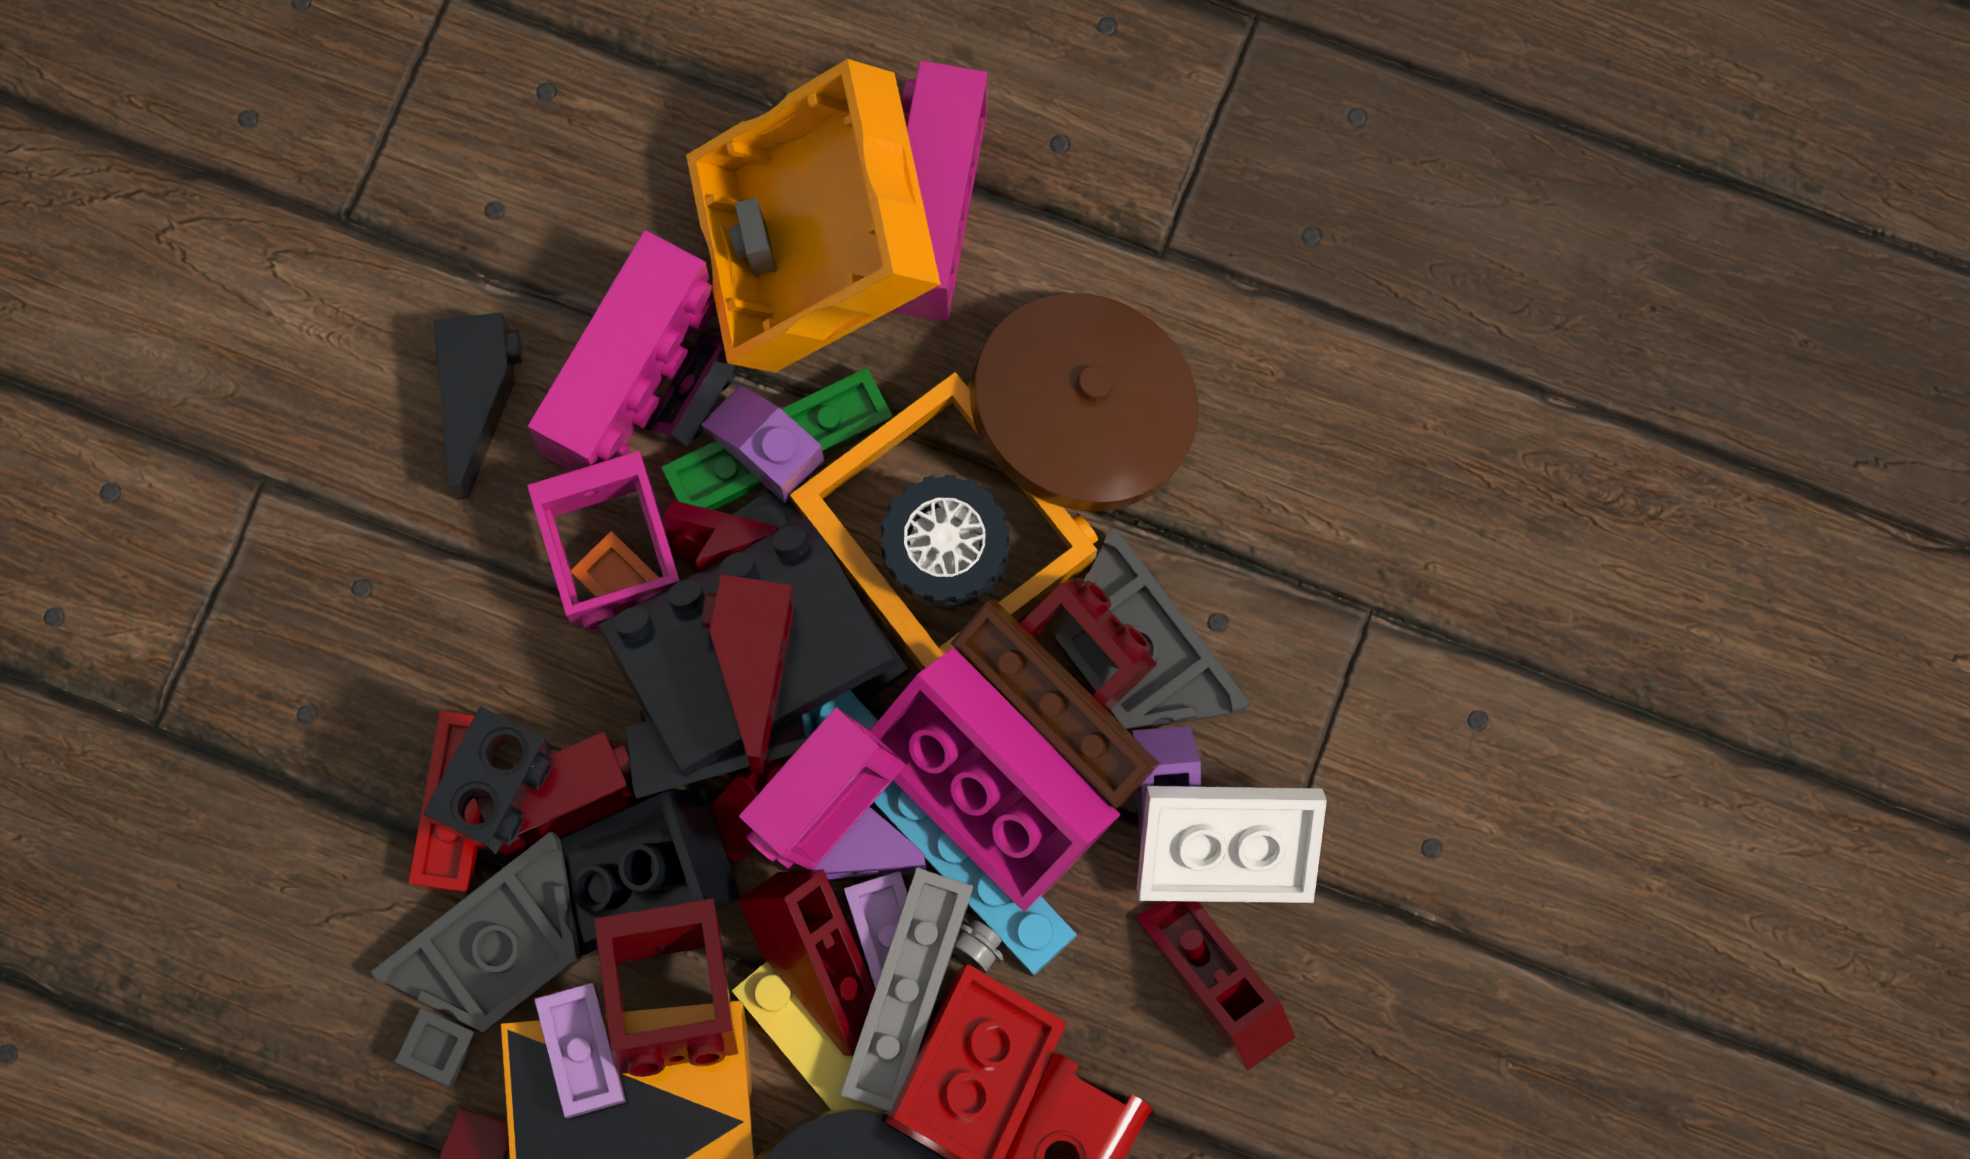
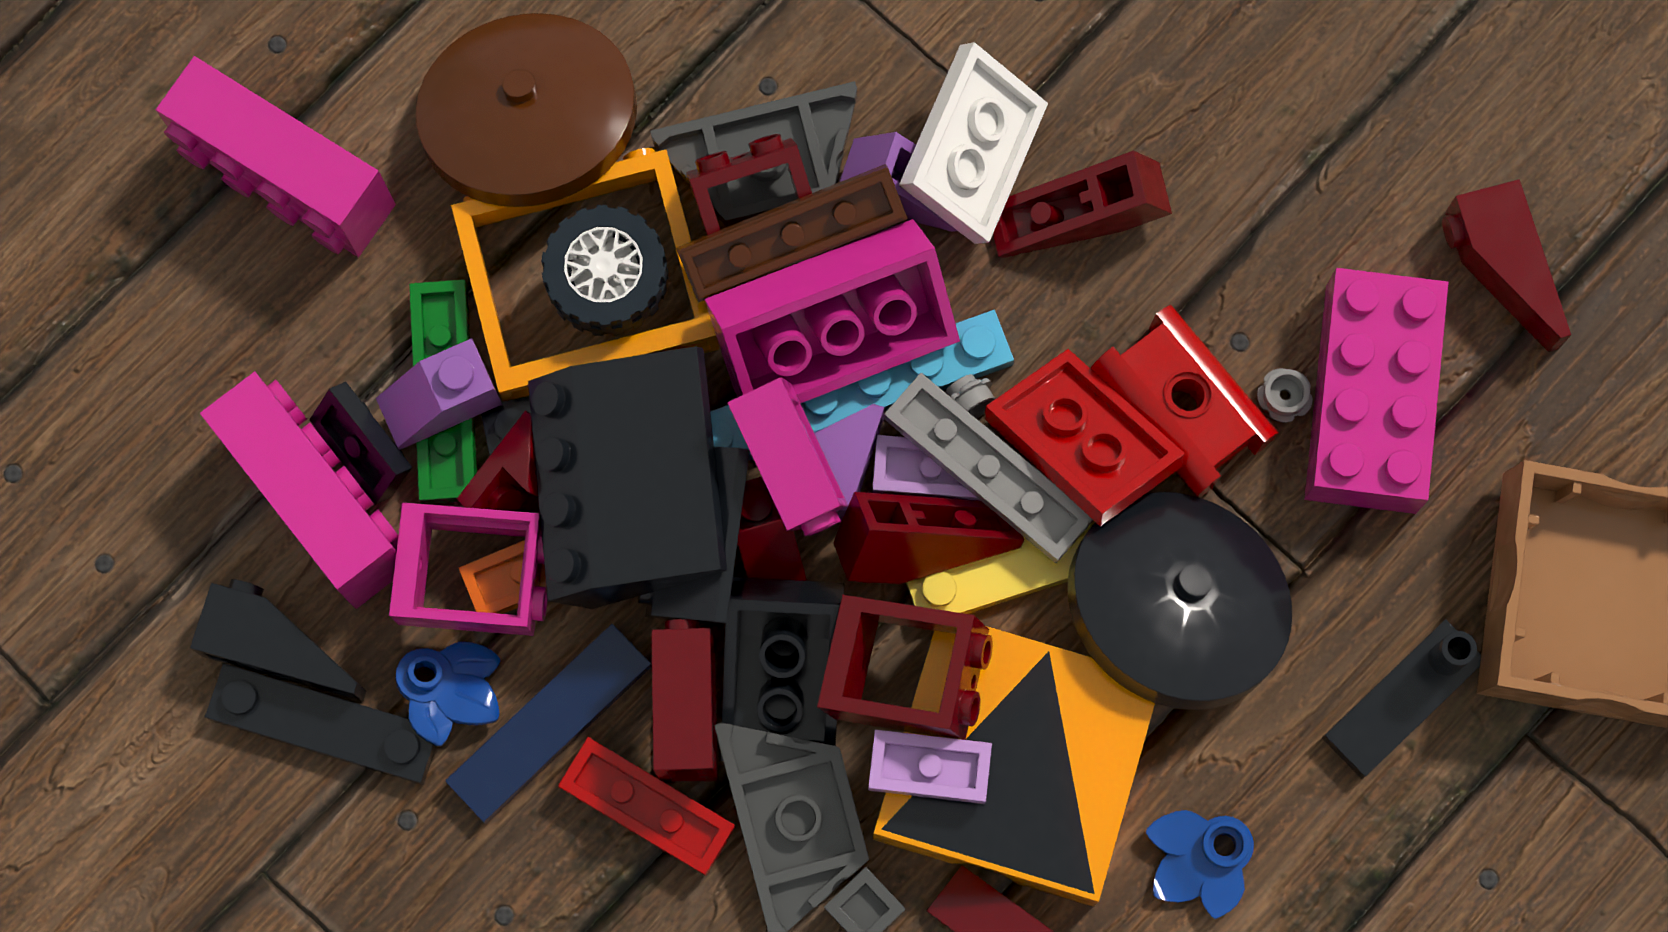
camera: 65 degrees left, 0 degrees up
(418, 475) = (320, 723): none -> black plate
(473, 775) = (647, 752): black brick -> none
(491, 579) = (454, 694): none -> blue plate
(499, 677) = (548, 723): none -> dark blue tile
(750, 640) = (643, 465): dark red slope -> none
(752, 238) = (246, 329): dark grey plate -> none
(837, 212) = (257, 261): light orange tile -> none

